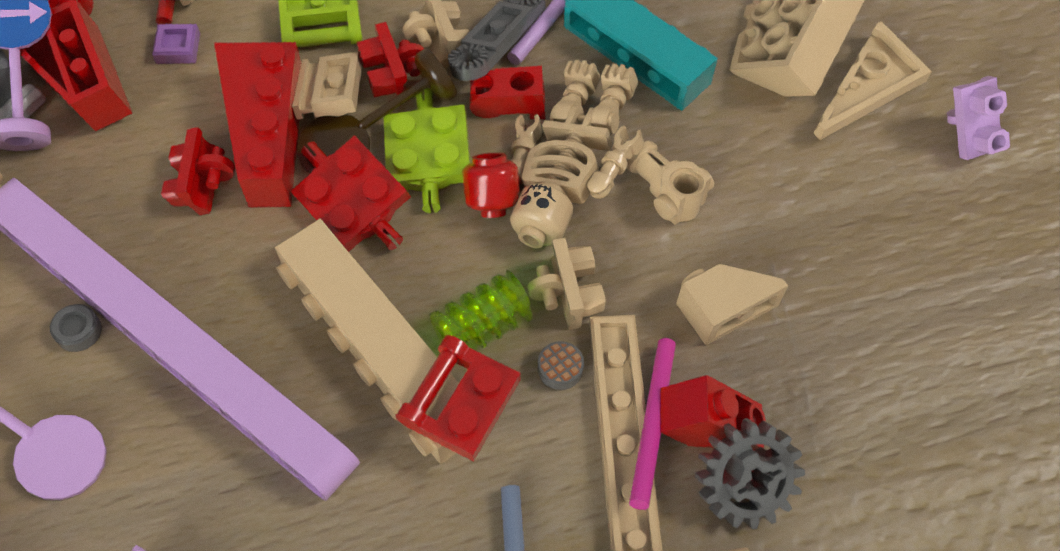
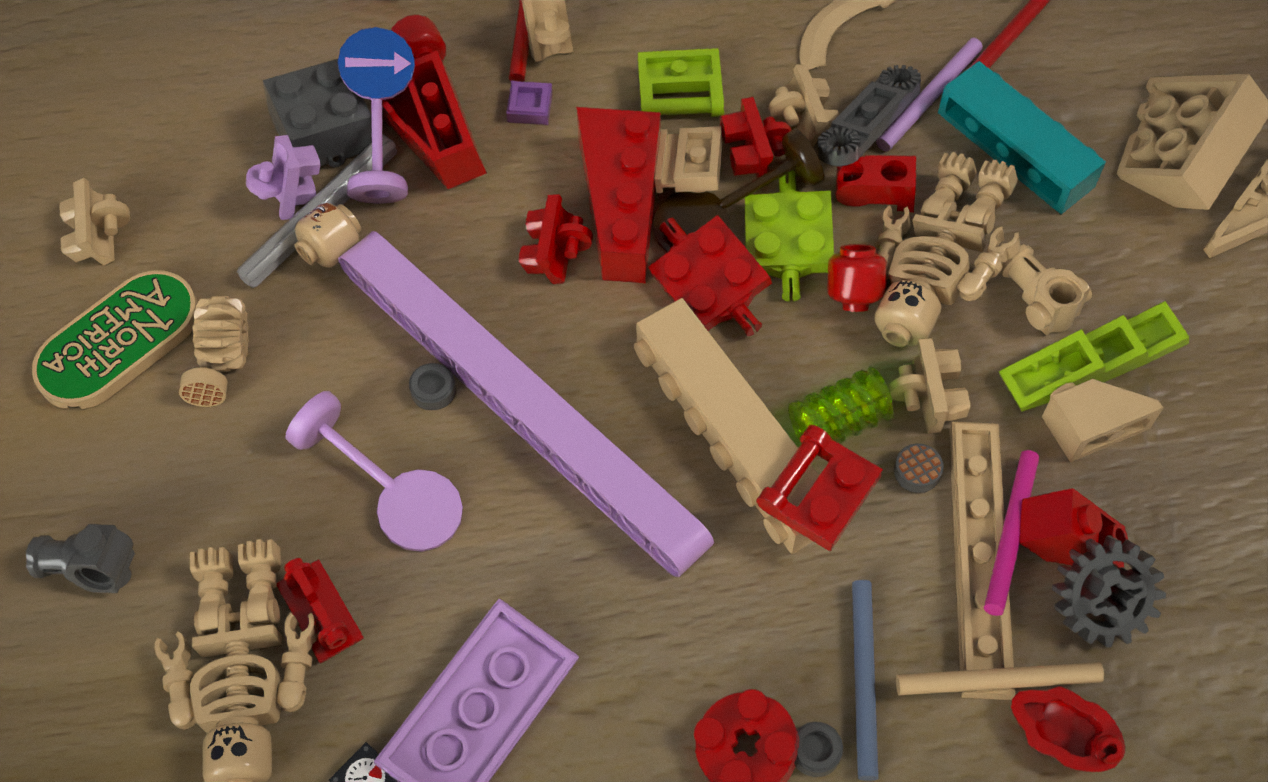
camera: 10 degrees right, 0 degrees up
(720, 241) = (1095, 355): none -> lime slope

